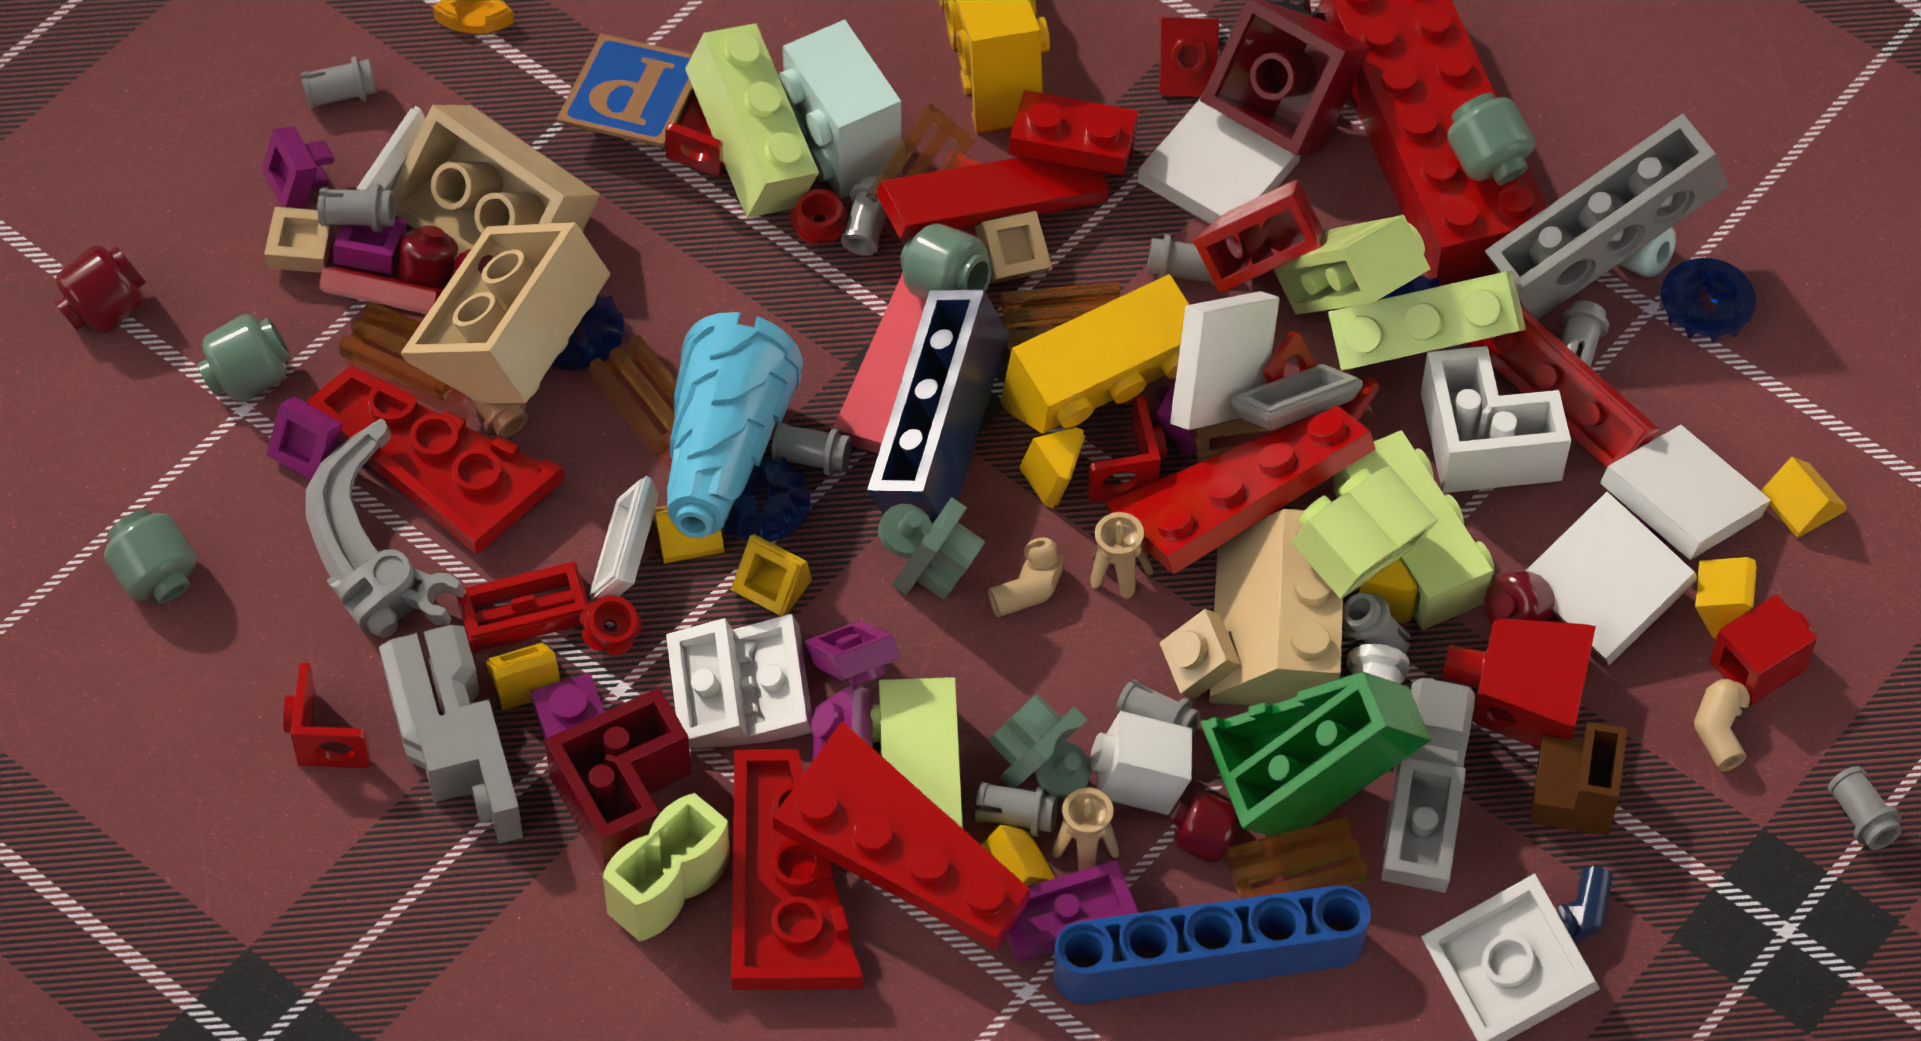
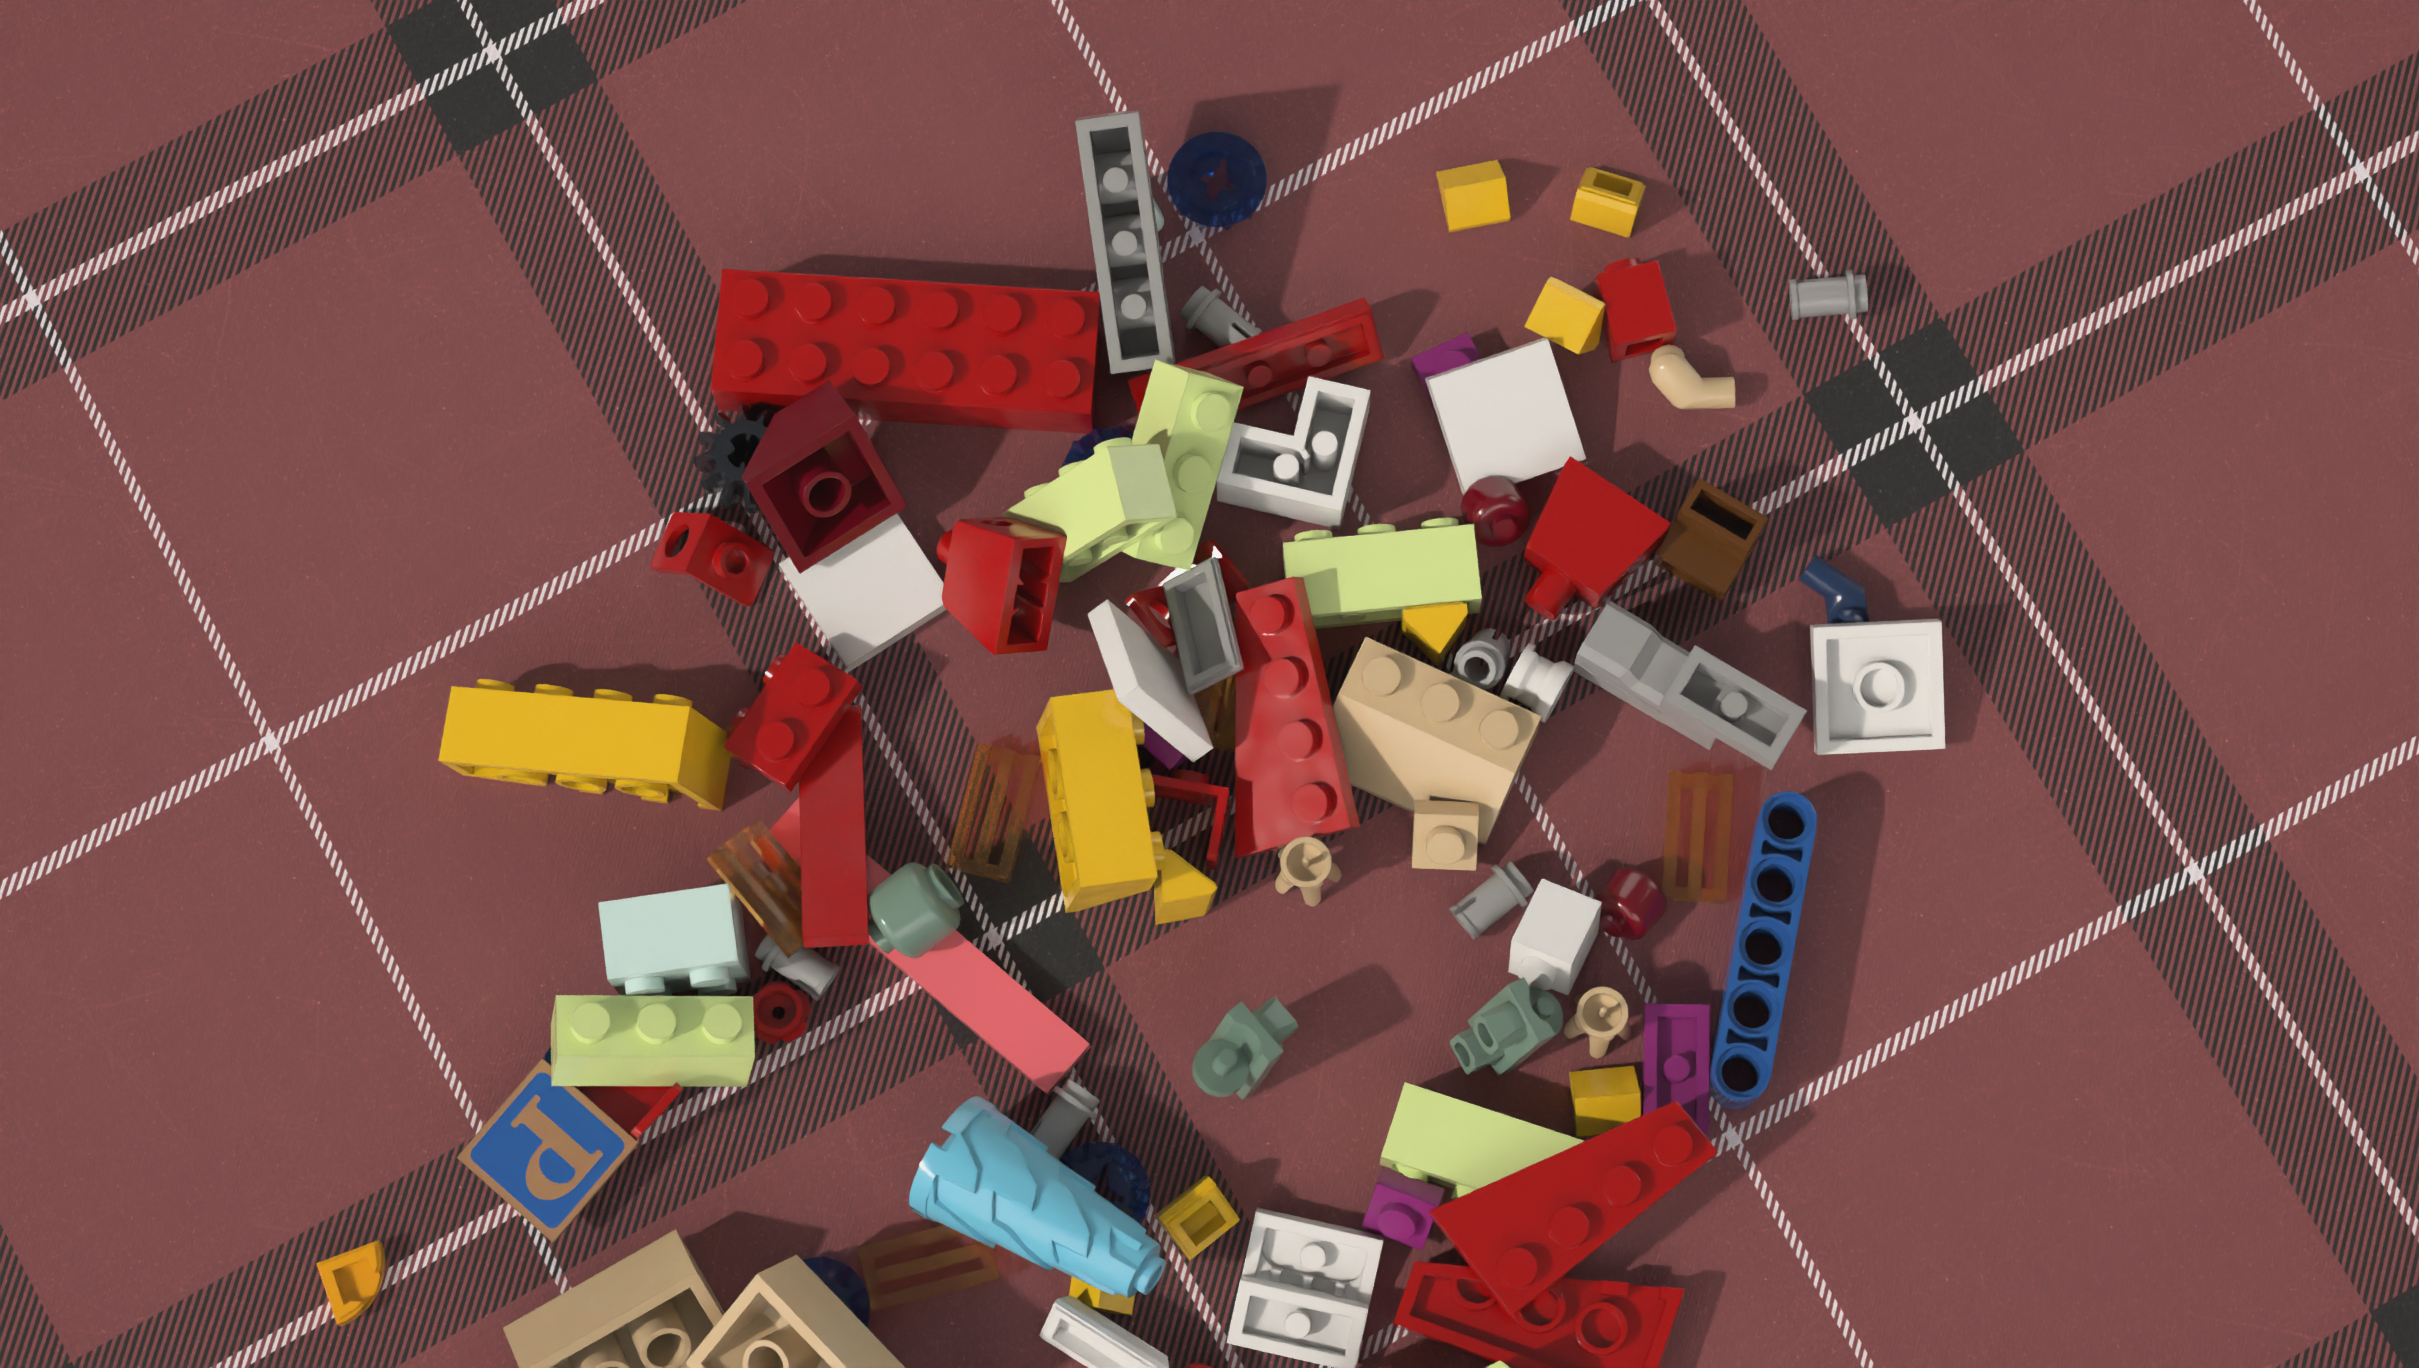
camera: 65 degrees left, 20 degrees up
(853, 652) = (1333, 1169): magenta plate -> none
(939, 402) = (1080, 981): dark blue brick -> none
(1014, 246) = (899, 829): tan plate -> none
(1017, 808) = (1547, 1075): light grey pin -> none
(1035, 581) = (1298, 960): tan arm -> none
(1176, 259) = (972, 675): light grey pin -> none
(1314, 751) = (1617, 779): green wedge -> none
(1362, 529) = (1412, 631): yellowish green brick -> none
(1491, 139) = (1006, 314): sand green head -> none
(1685, 491) = (1436, 303): white tile -> none
(1856, 603) = (1607, 201): none -> yellow slope

